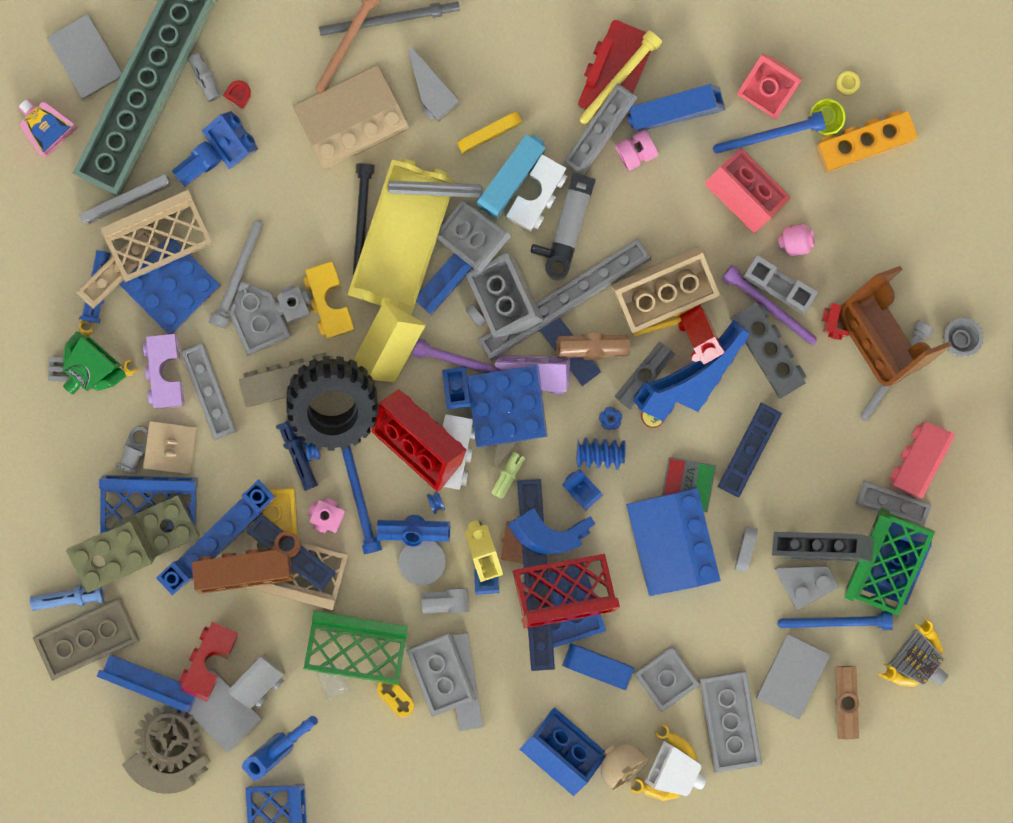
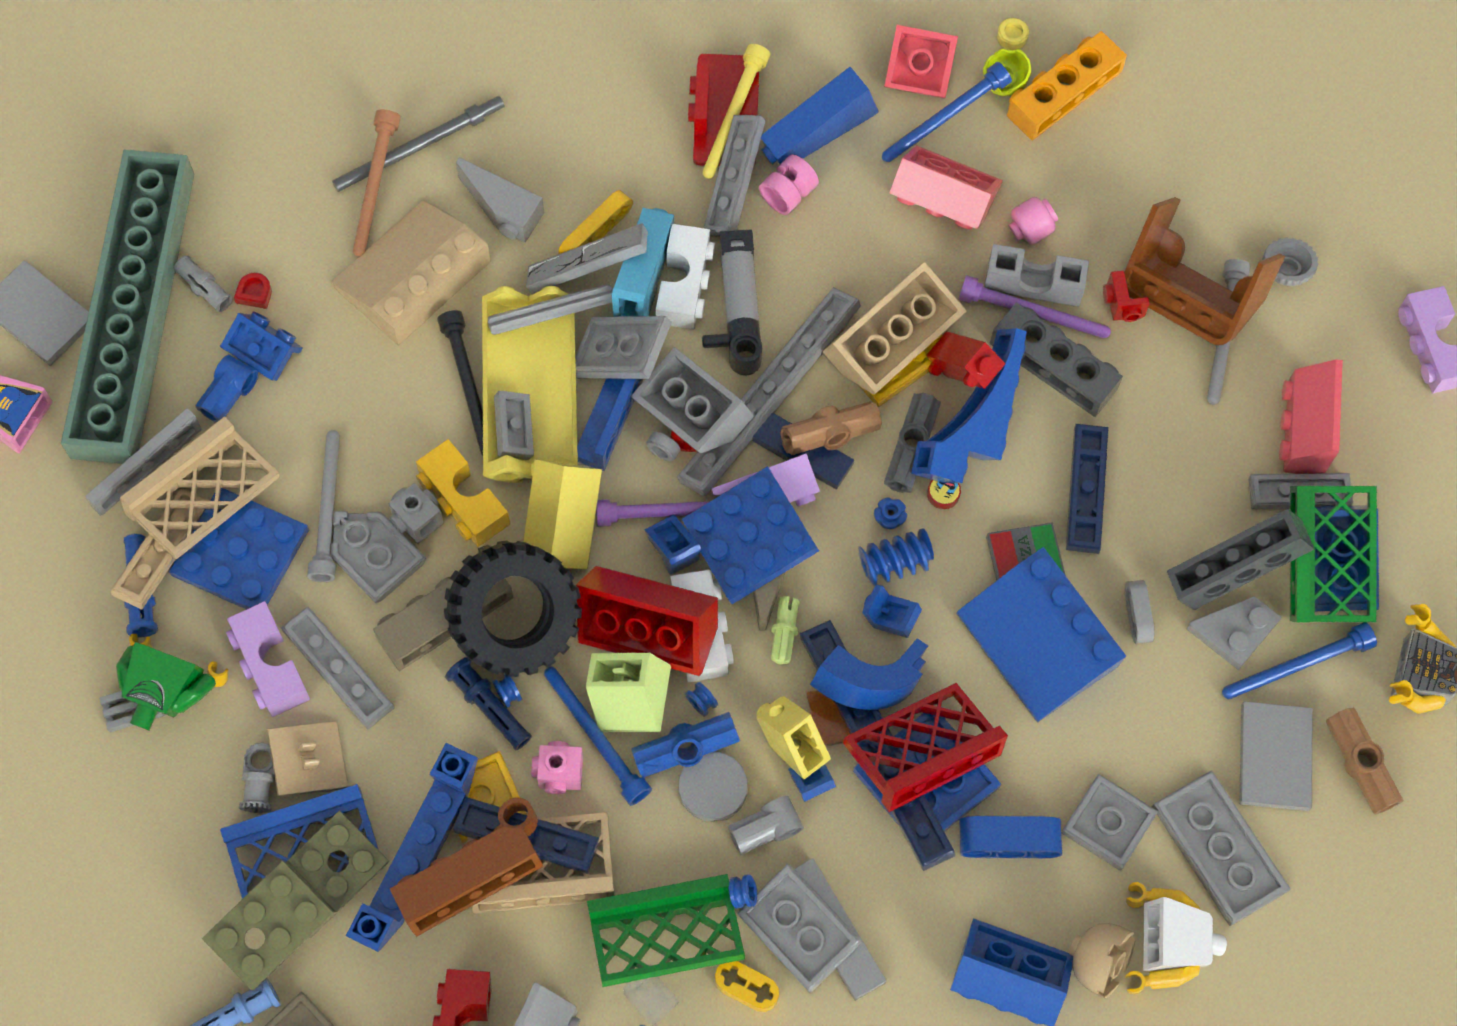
camera: 20 degrees left, 20 degrees down
(380, 265) = (513, 425): none -> light grey plate
(388, 483) = (628, 691): none -> yellowish green slope
(413, 641) = (743, 891): none -> blue bush
(472, 161) = (587, 258): none -> light grey tile

